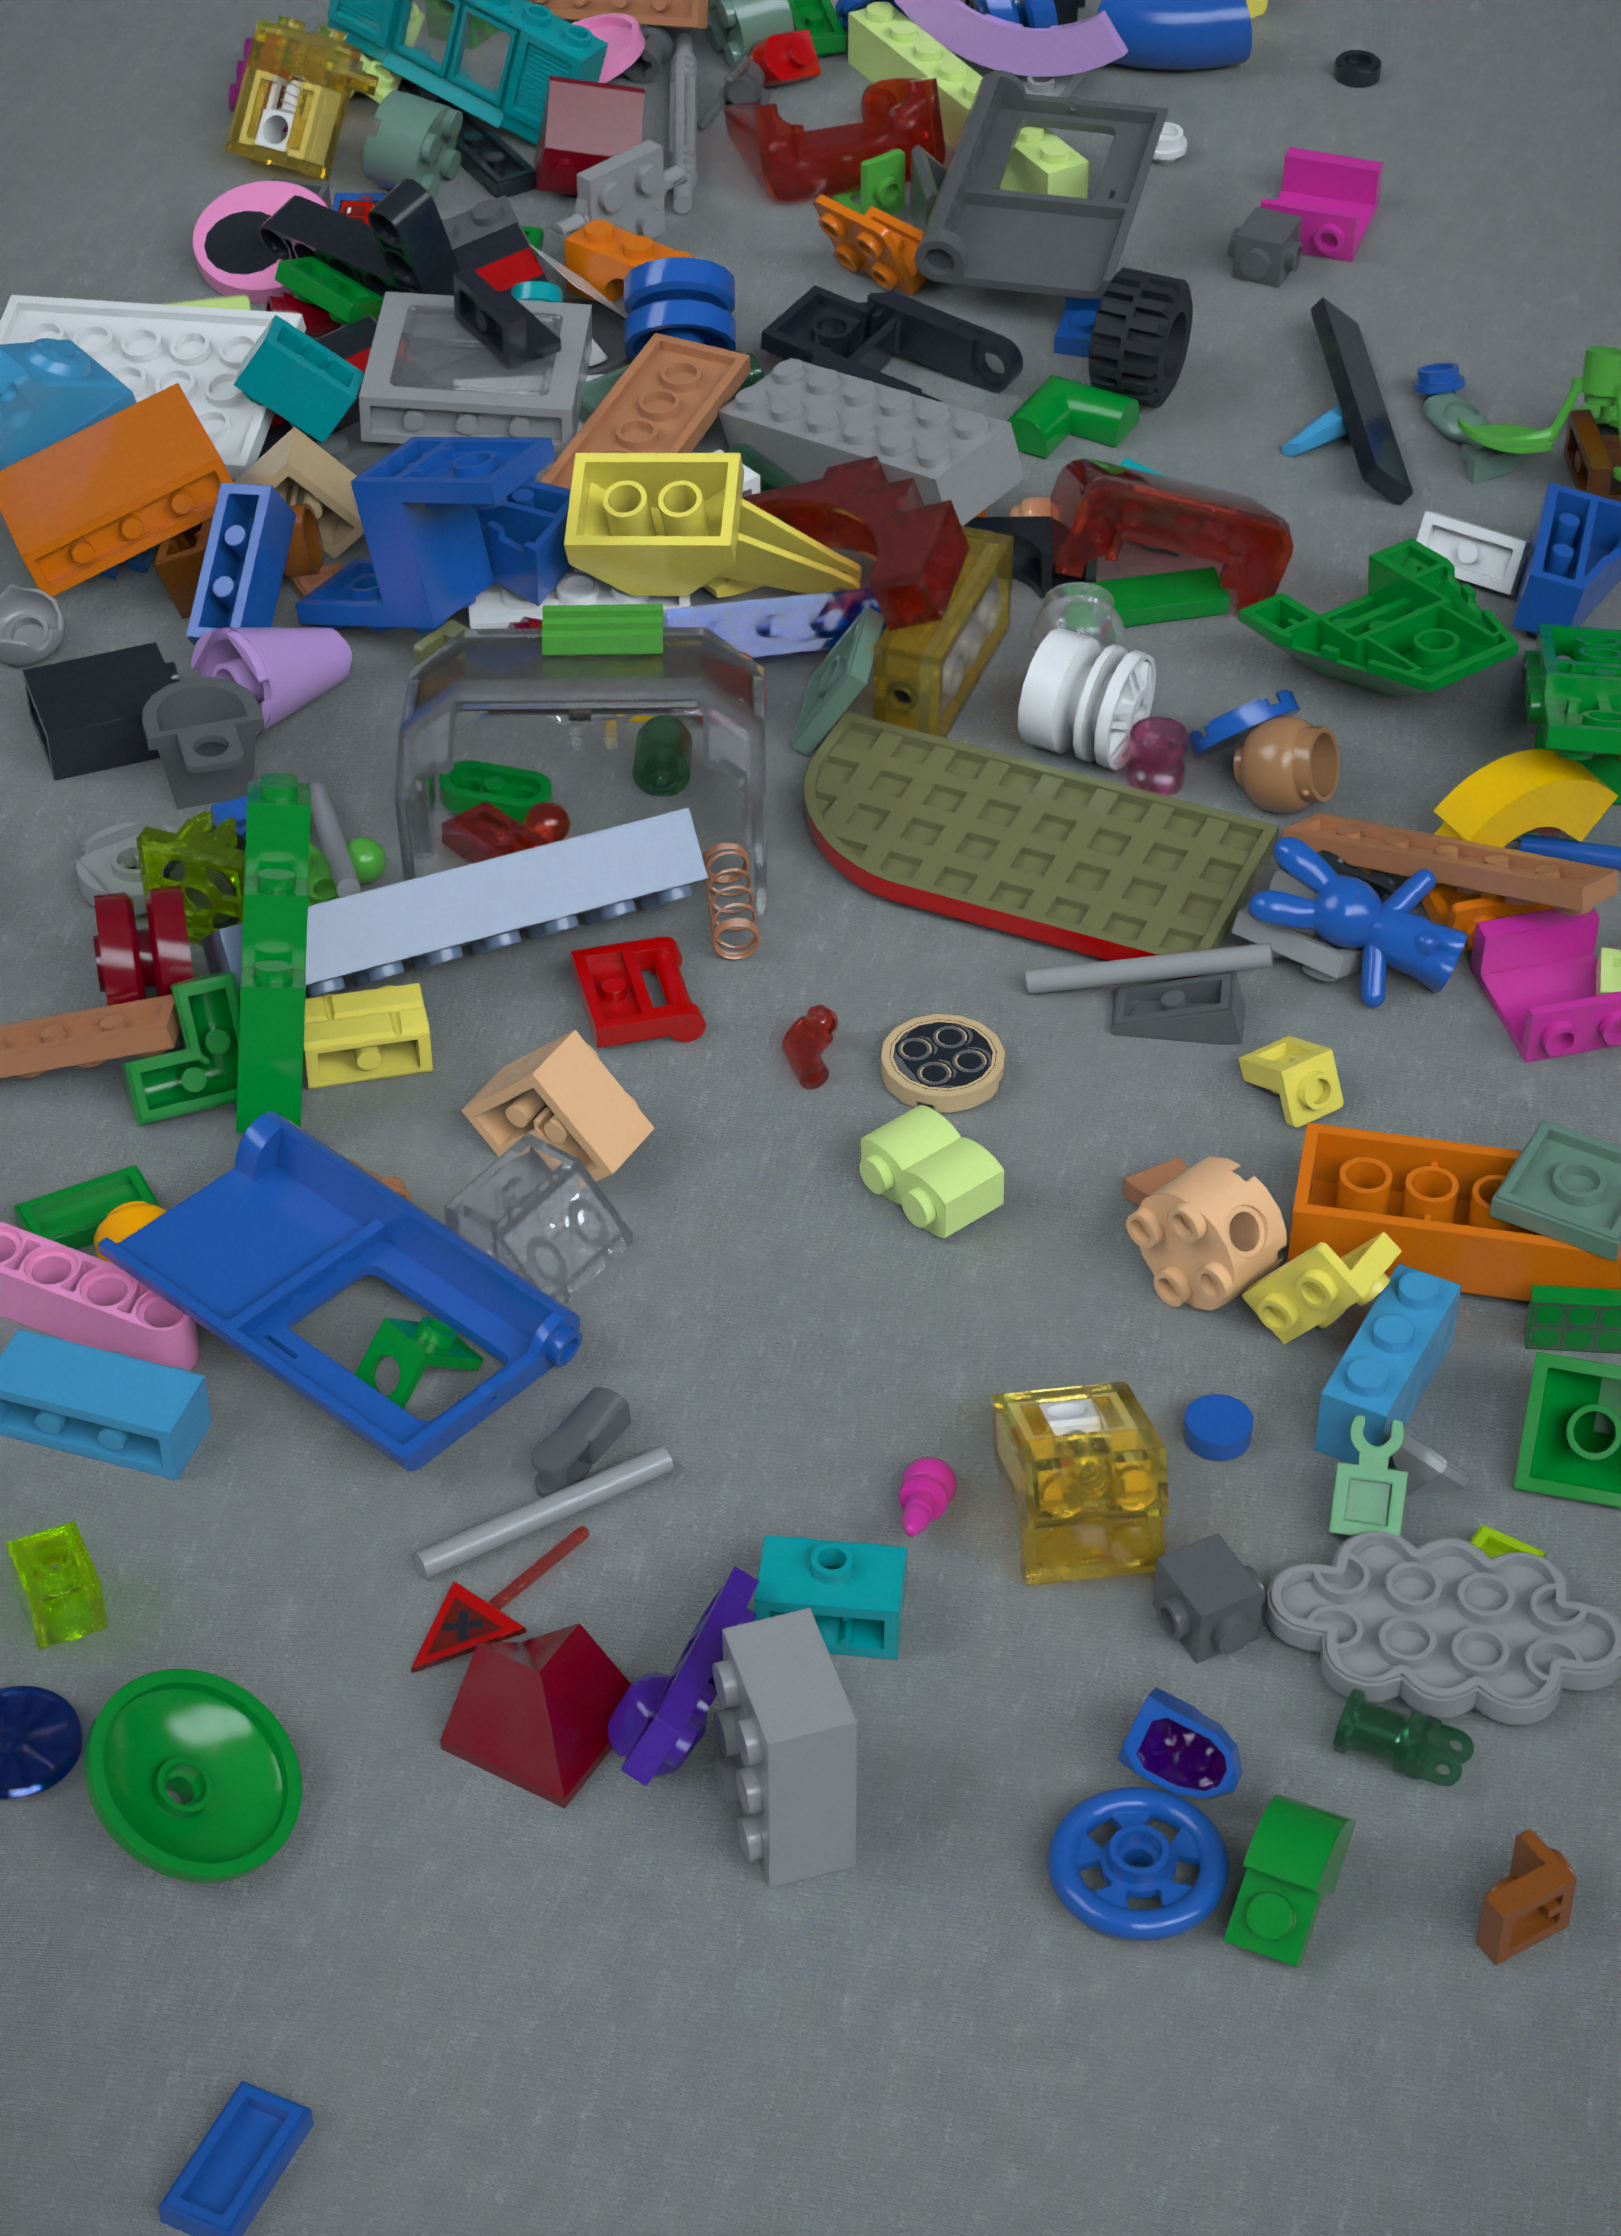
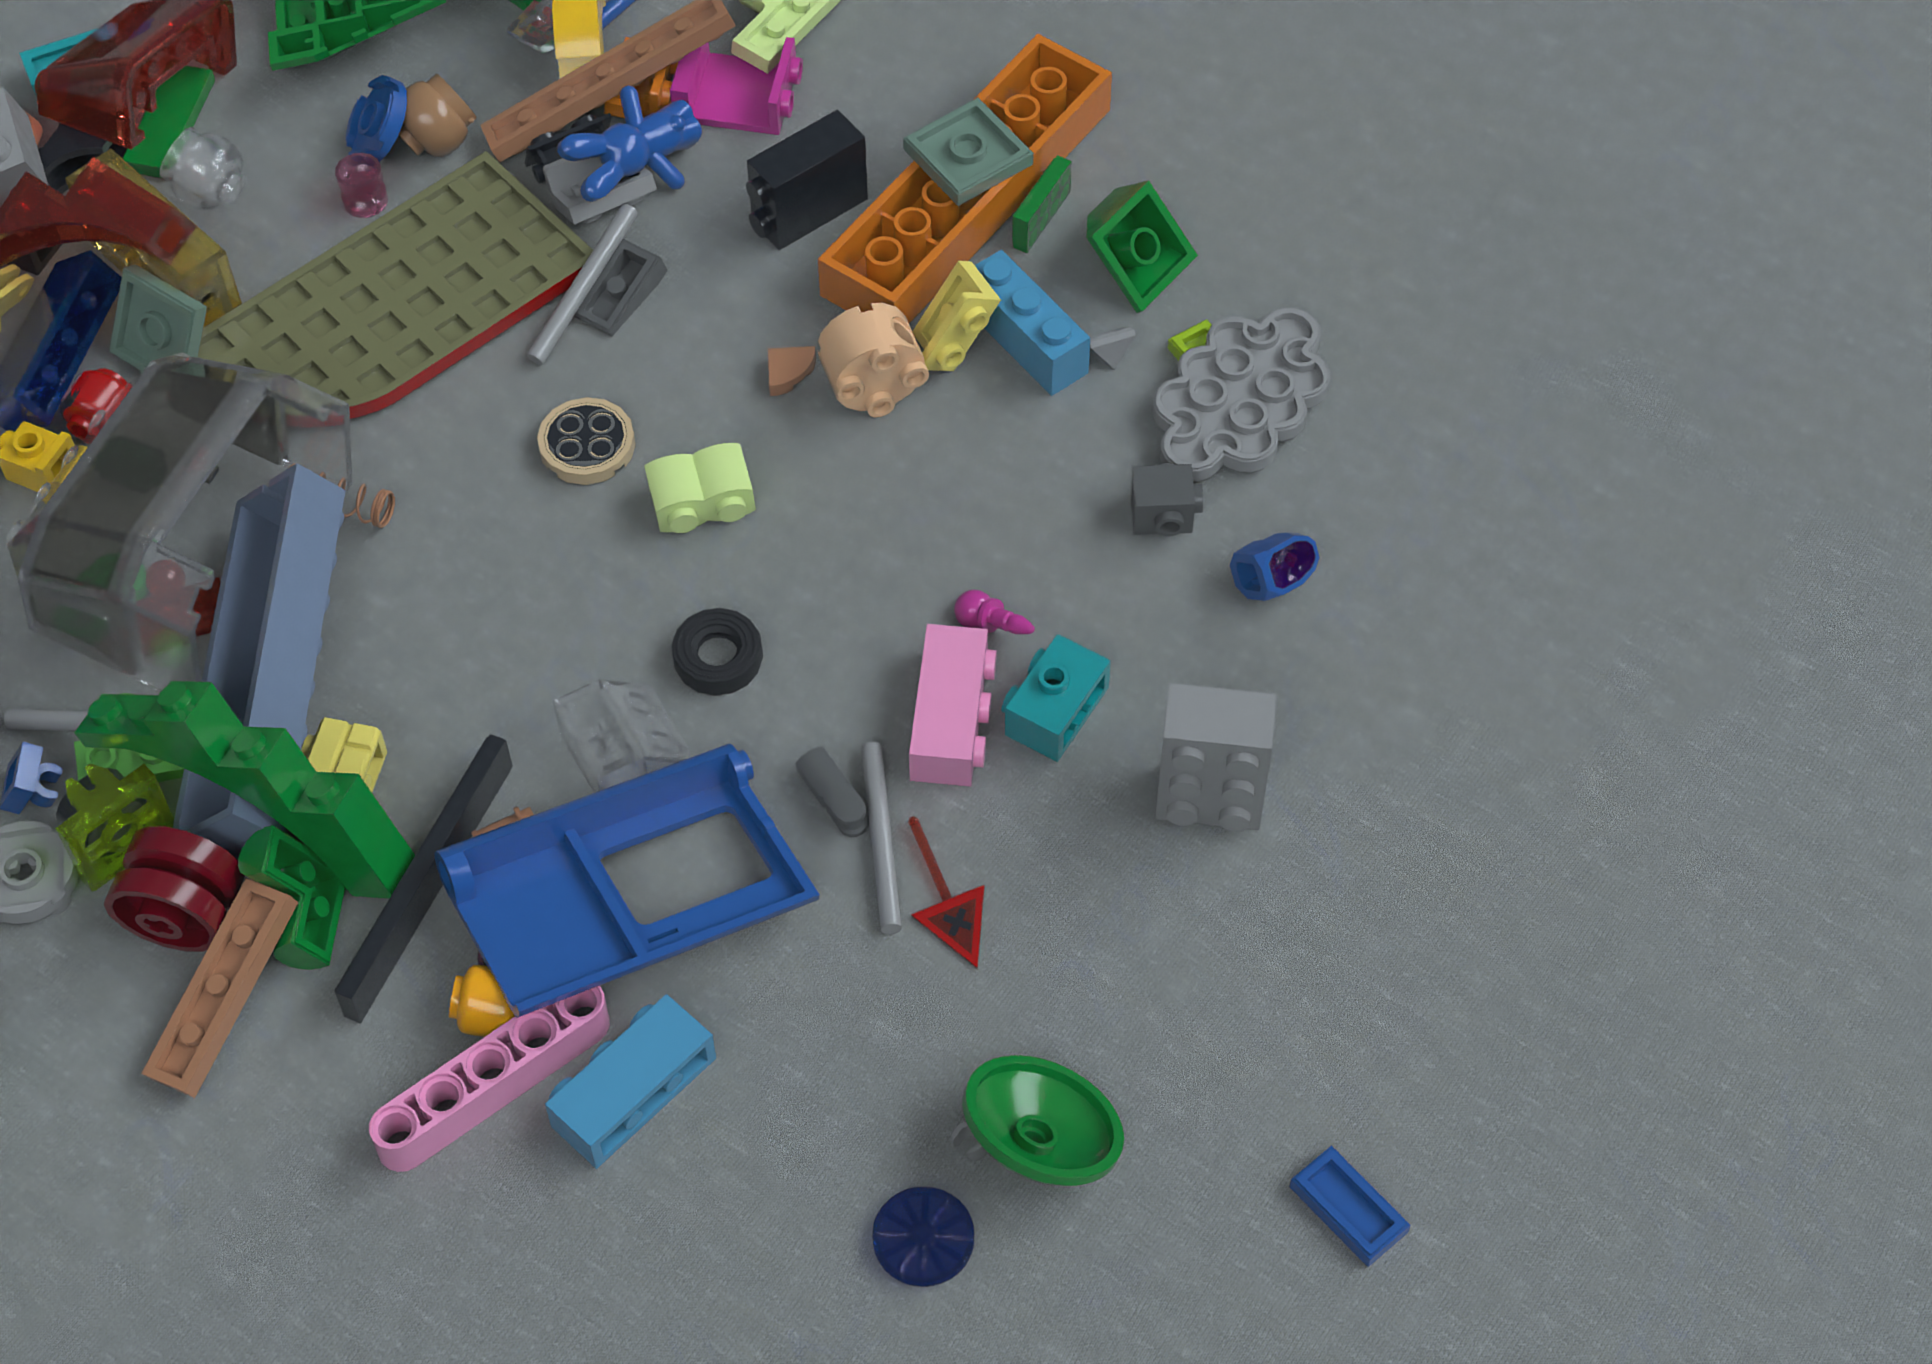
camera: 65 degrees left, 15 degrees up
(59, 1600) = (812, 1157): clear neon green brick -> none
(77, 1211) = (404, 1031): green tile -> none
(208, 1145) = (421, 880): none -> black tile
(413, 1348) = (698, 851): green bracket -> none
(537, 1711) = (1063, 902): dark red slope -> none
(565, 1100) = (511, 676): light nougat brick -> none
(602, 630) = (113, 419): bright green tile -> none
(618, 998) = (396, 603): red plate -> none
(666, 1713) = (1126, 799): dark purple plate -> none
(717, 1304) = (721, 678): none -> black tyre
(784, 1486) = (951, 705): none -> bright pink brick
(807, 1042) = (517, 513): clear red arm -> none
(1082, 1480) = (1036, 513): clear yellow brick -> none
(1085, 697) = (294, 190): white wheel -> none
(1138, 1844) = (1344, 590): blue plate -> none
(1218, 1427) = (1013, 434): blue tile -> none
(1288, 1871) = (1402, 541): green brick -> none
(1300, 1074) = (728, 252): light yellow bracket -> none
(1369, 1494) = (1124, 376): plate -> none
(1408, 1742) = (1319, 453): clear green piece -> none
(1434, 1075) = (807, 180): none -> black brick
(1529, 1902) = (1467, 442): dark orange bracket -> none

